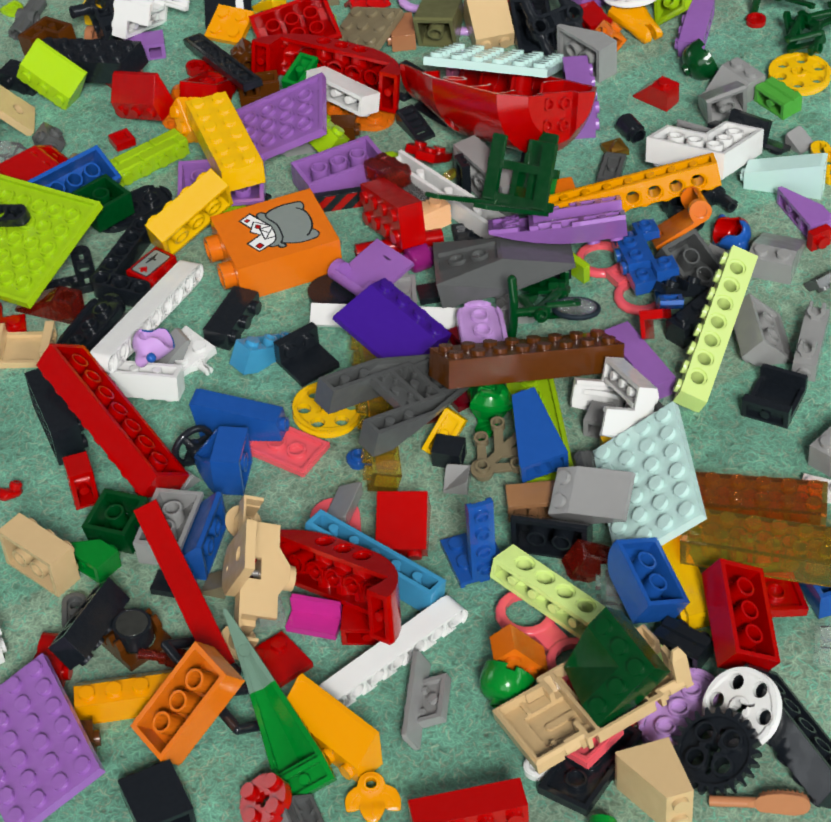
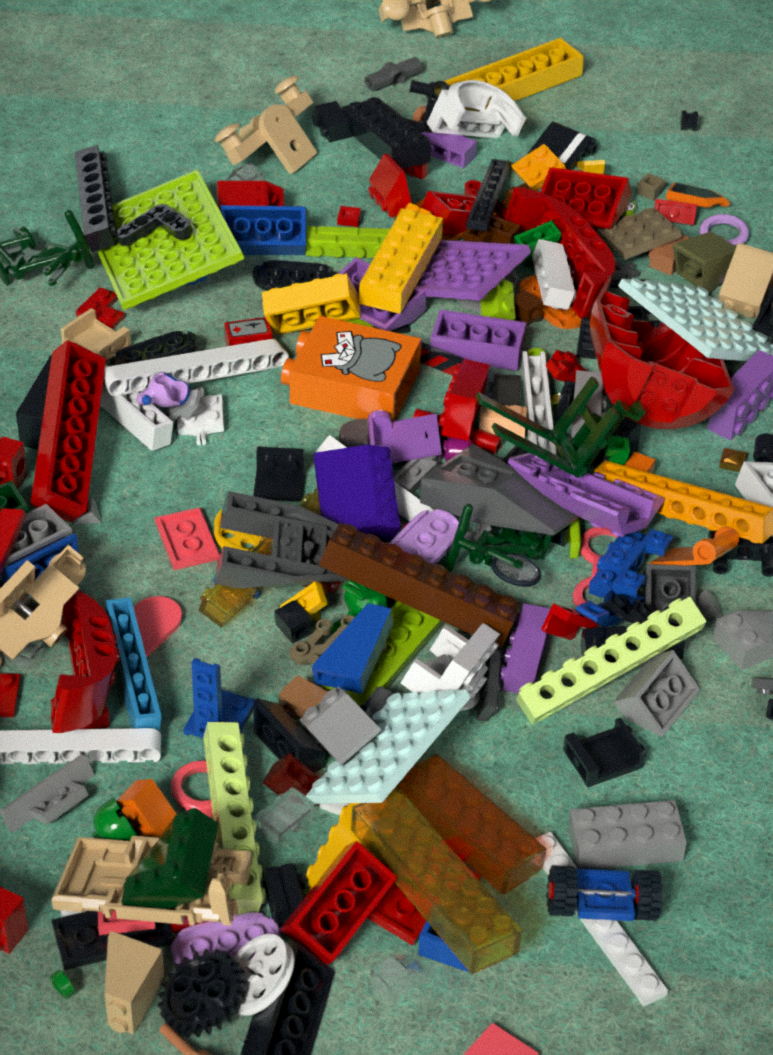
camera: 35 degrees right, 0 degrees up
(11, 8) = (395, 58): lime tile -> none
(45, 28) = (388, 91): reddish brown brick -> none
(49, 135) = (293, 183): dark grey brick -> none
(52, 74) = (343, 131): lime slope -> none
(56, 304) = (150, 319): clear red slope -> none
(77, 281) = (189, 312): black beam -> none
(111, 273) = (209, 322): black beam -> none
(114, 198) = (265, 257): dark green brick -> none
(216, 409) = (165, 488): blue slope -> none
(220, 457) = (121, 512): blue piece -> none
(232, 317) = (261, 410): black brick -> none
(254, 353) = (240, 447): dark azure slope -> none
(314, 616) = (46, 676): dark pink panel -> none
(346, 501) = (168, 610): light grey slope -> none
(389, 168) = (505, 363): clear red brick -> none
(404, 522) = (181, 645): red slope -> none
(457, 479) = (276, 648): light grey slope -> none
(612, 166) = (707, 473): dark grey plate -> none
(645, 580) = (298, 820): blue brick -> none
(731, 232) = (736, 594): piece -> none
(811, 341) = (688, 729): light grey brick -> none

